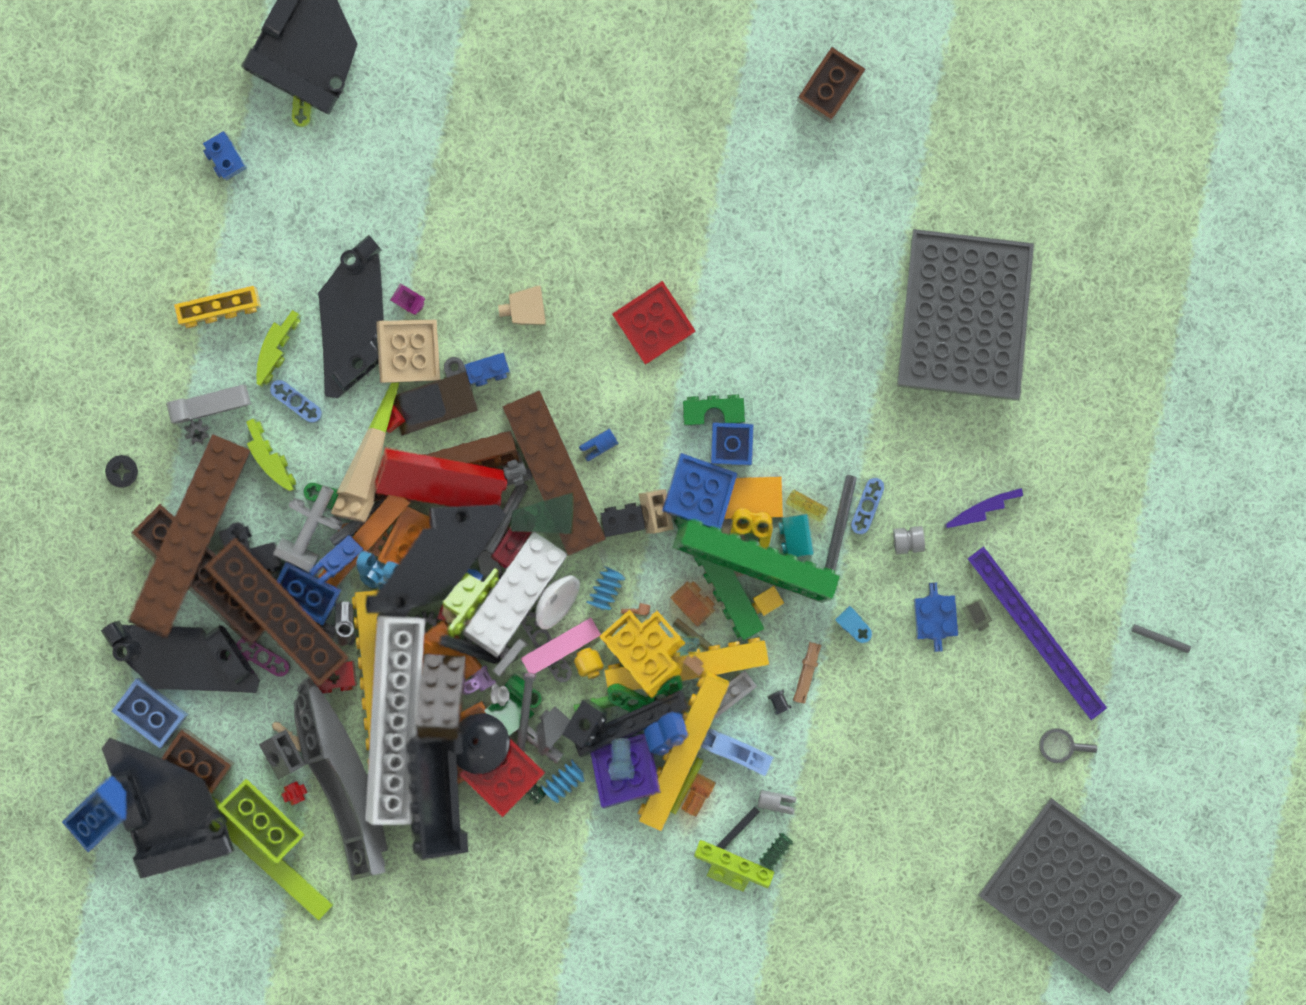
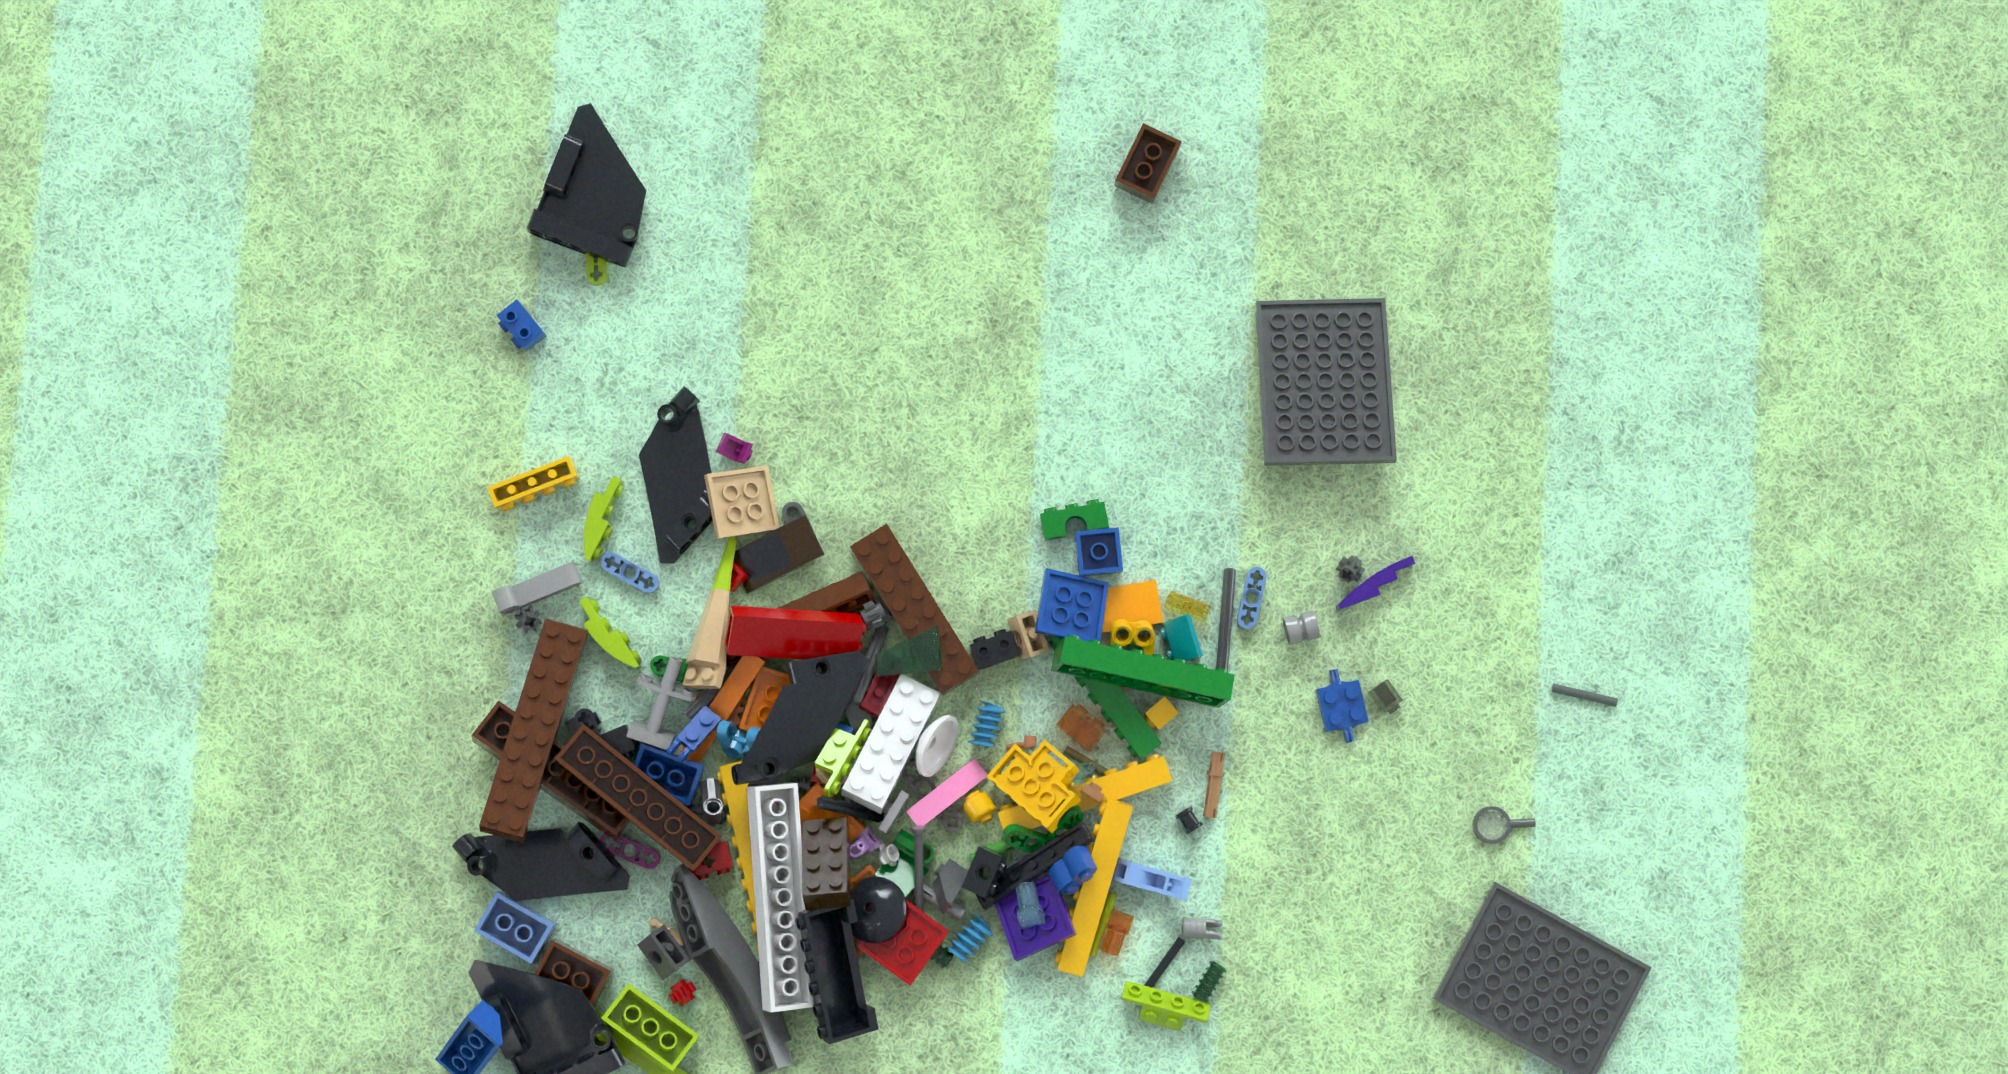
camera: 10 degrees left, 5 degrees down
(115, 464) = (445, 667): black gear -> none
(487, 369) = (828, 509): blue brick -> none
(525, 307) = (859, 439): tan torso -> none
(603, 441) = (962, 569): blue hinge -> none
(653, 322) = (997, 436): red plate -> none
(737, 689) = (1142, 812): light grey plate -> none
(852, 622) = (1254, 723): dark azure piece -> none
(962, 492) = (1350, 569): none -> dark grey gear
(1037, 633) = (1452, 708): dark purple plate -> none

